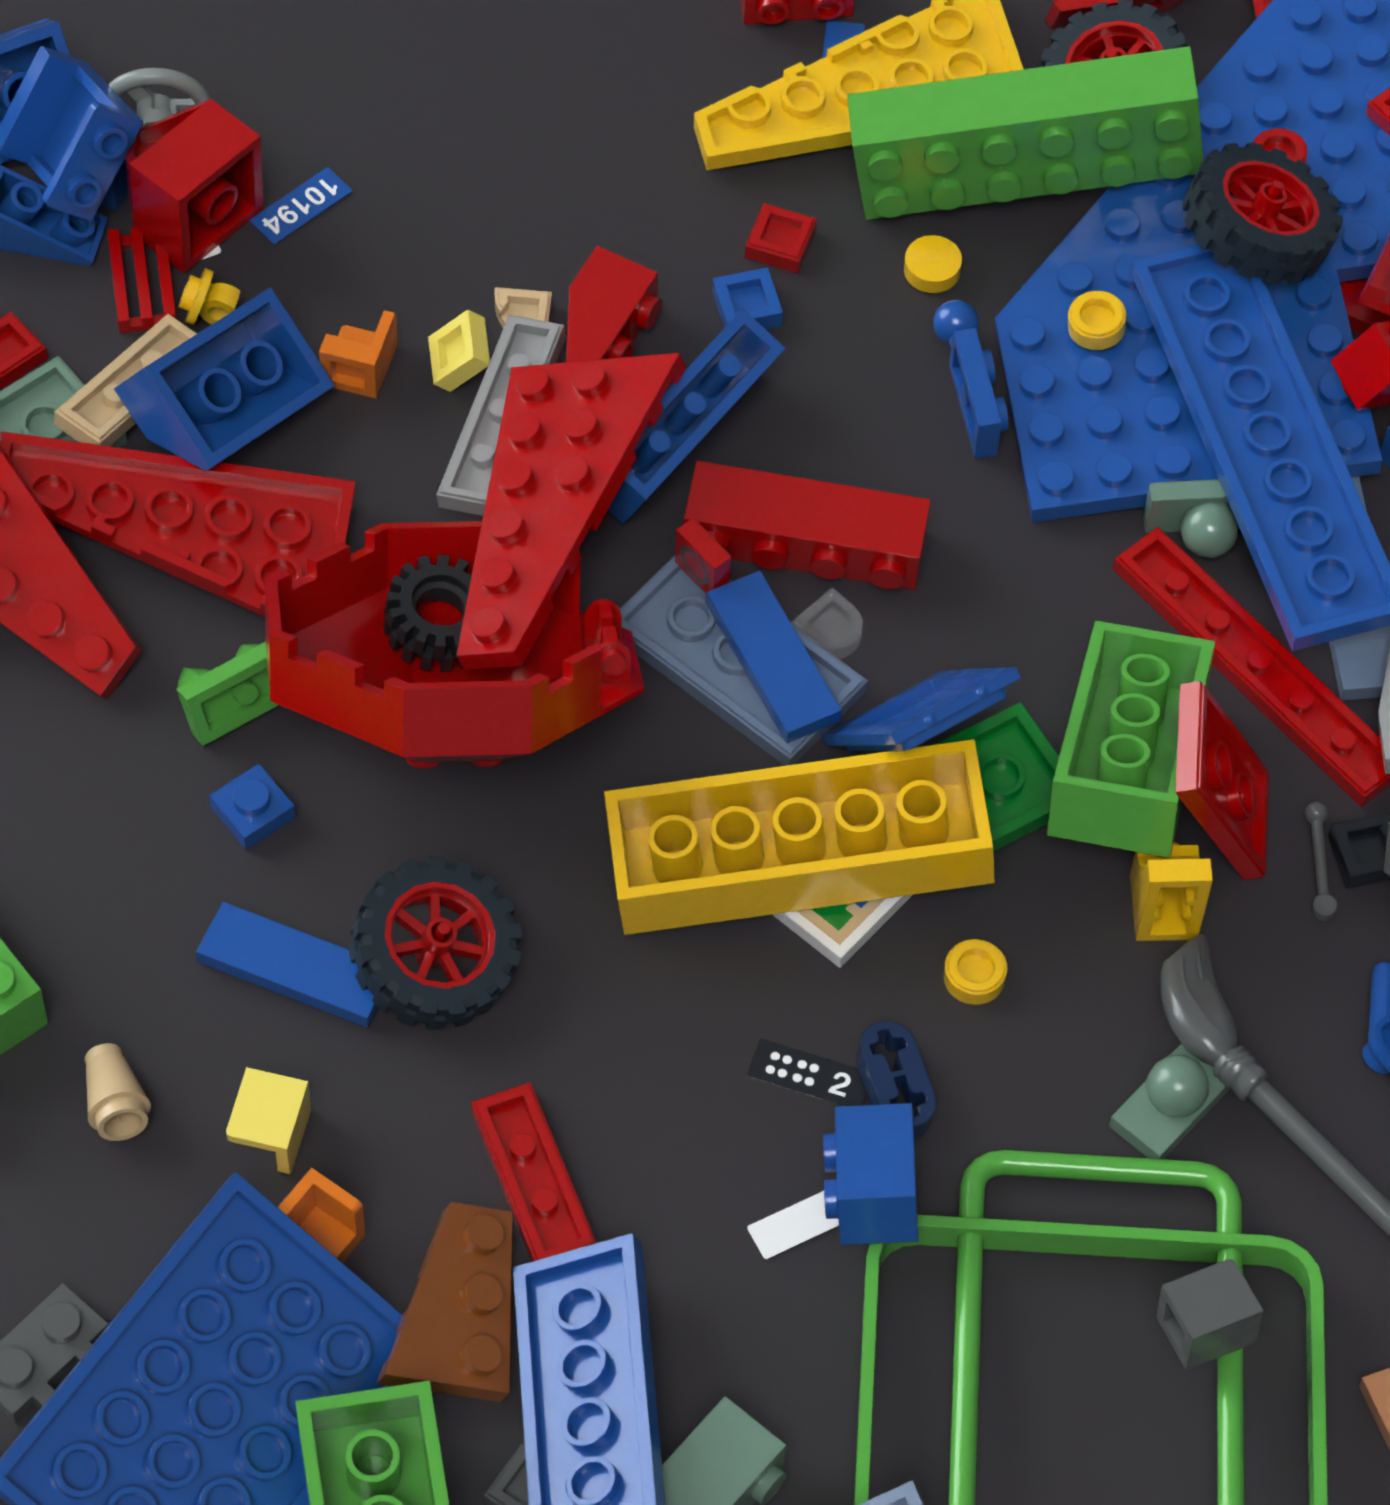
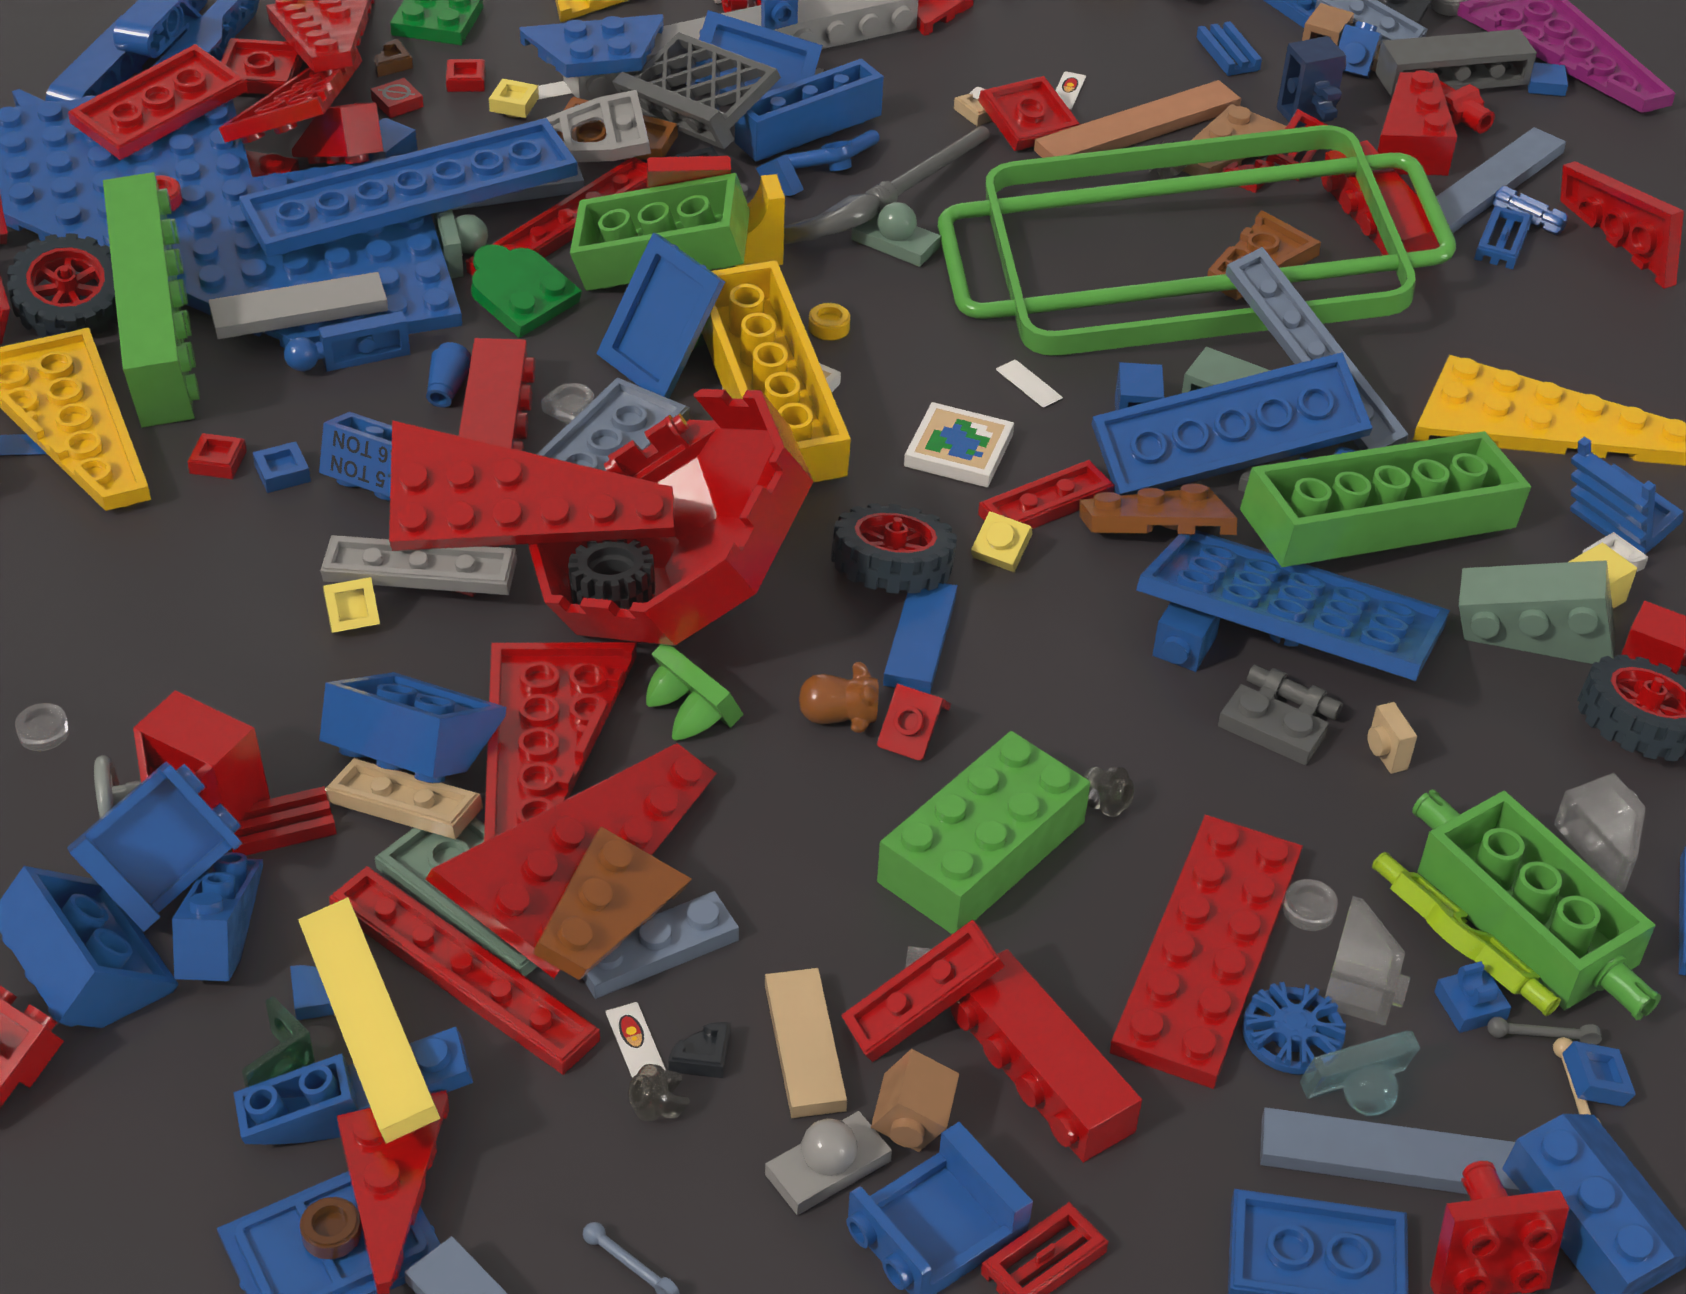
camera: 100 degrees left, 15 degrees down
(114, 1095) = (1062, 708): tan cone -> none
(136, 914) = (910, 722): none -> red bracket
(183, 844) = (836, 699): none -> dark orange animal
(207, 299) = (307, 765): yellow plate -> none
(252, 806) = (787, 674): blue plate -> none
(271, 1115) = (1055, 609): light yellow panel -> none
(326, 1213) = (1119, 588): orange panel -> none
(338, 71) = (42, 727): none -> clear tile
(359, 357) = (355, 654): orange panel -> none
(442, 1091) = (1001, 541): none -> light yellow plate
(522, 303) = (301, 585): tan tile -> none
(610, 307) = (299, 526): red slope -> none
(667, 1088) = (959, 444): none -> tile
(701, 556) = (545, 437): red tile -> none
(721, 1343) = (1138, 384): none -> blue brick
(773, 657) = (612, 412): blue tile -> none
(807, 1074) = (922, 388): black sticker -> none
(874, 1174) = (1004, 329): blue brick -> none
(897, 476) = (447, 373): none -> blue cone
(908, 1072) = (921, 345): dark blue beam -> none
(932, 264) = (240, 378): yellow tile -> none
(1036, 313) = (298, 305): none -> light grey tile
(1078, 577) = (520, 287): none -> green plate
(1097, 320) = (304, 271): yellow tile -> none
(1209, 1313) = (1066, 181): dark grey panel -> none
(1277, 223) = (227, 179): black wheel -> none
(1342, 946) = (786, 174): none -> blue tile

